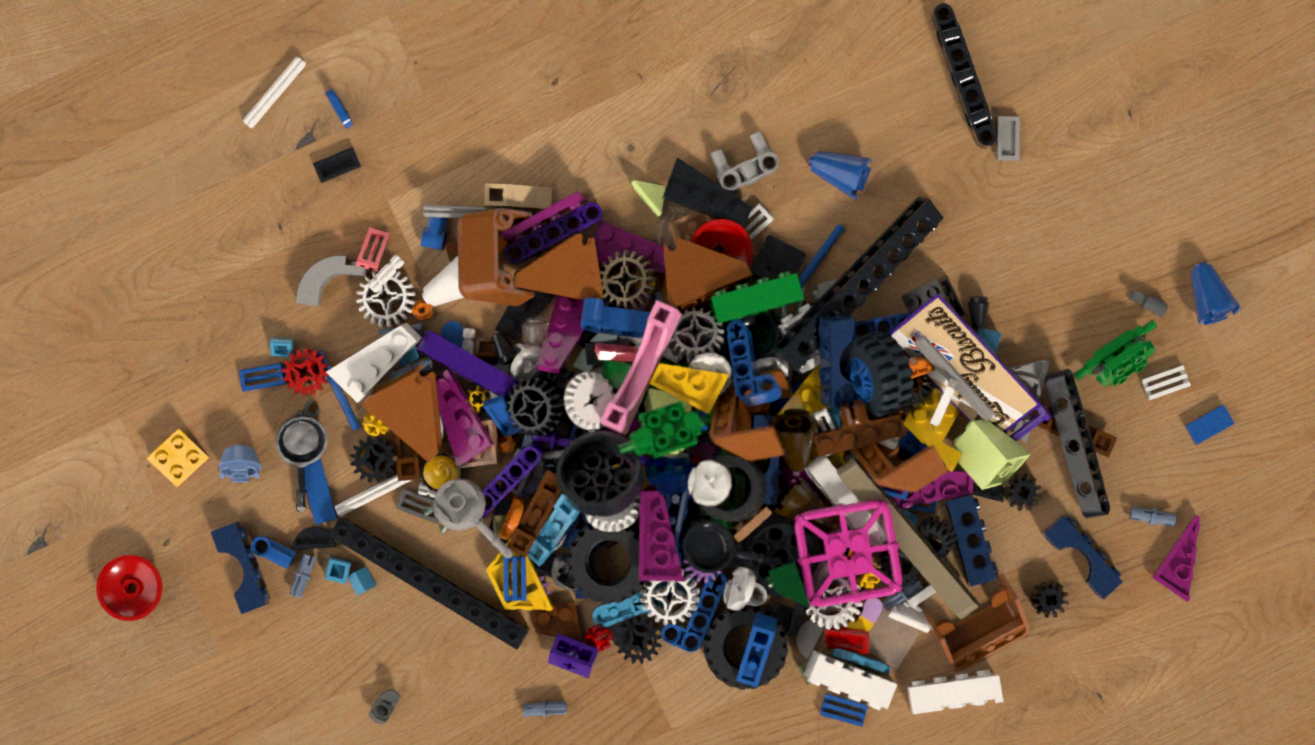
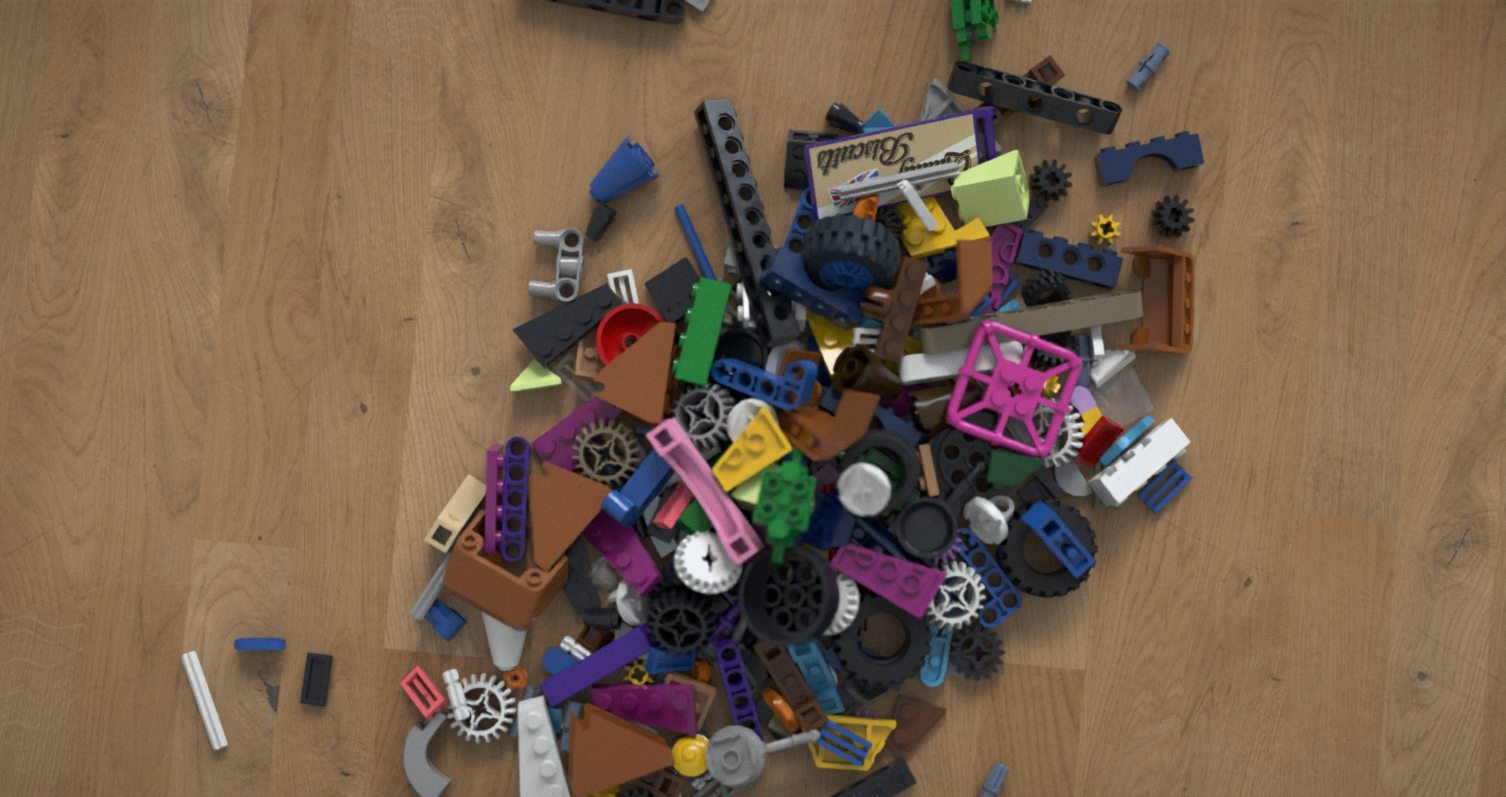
camera: 65 degrees left, 0 degrees up
(452, 250) = (472, 613): reddish brown slope -> none
(573, 655) = (955, 728): dark purple brick -> none
(599, 637) = (951, 691): red gear -> none
(795, 175) = (600, 221): none -> black cone
(954, 692) = (1211, 364): white wedge -> none
(1015, 558) = (1111, 227): none -> yellow gear
(1177, 567) = (1212, 72): magenta wing -> none

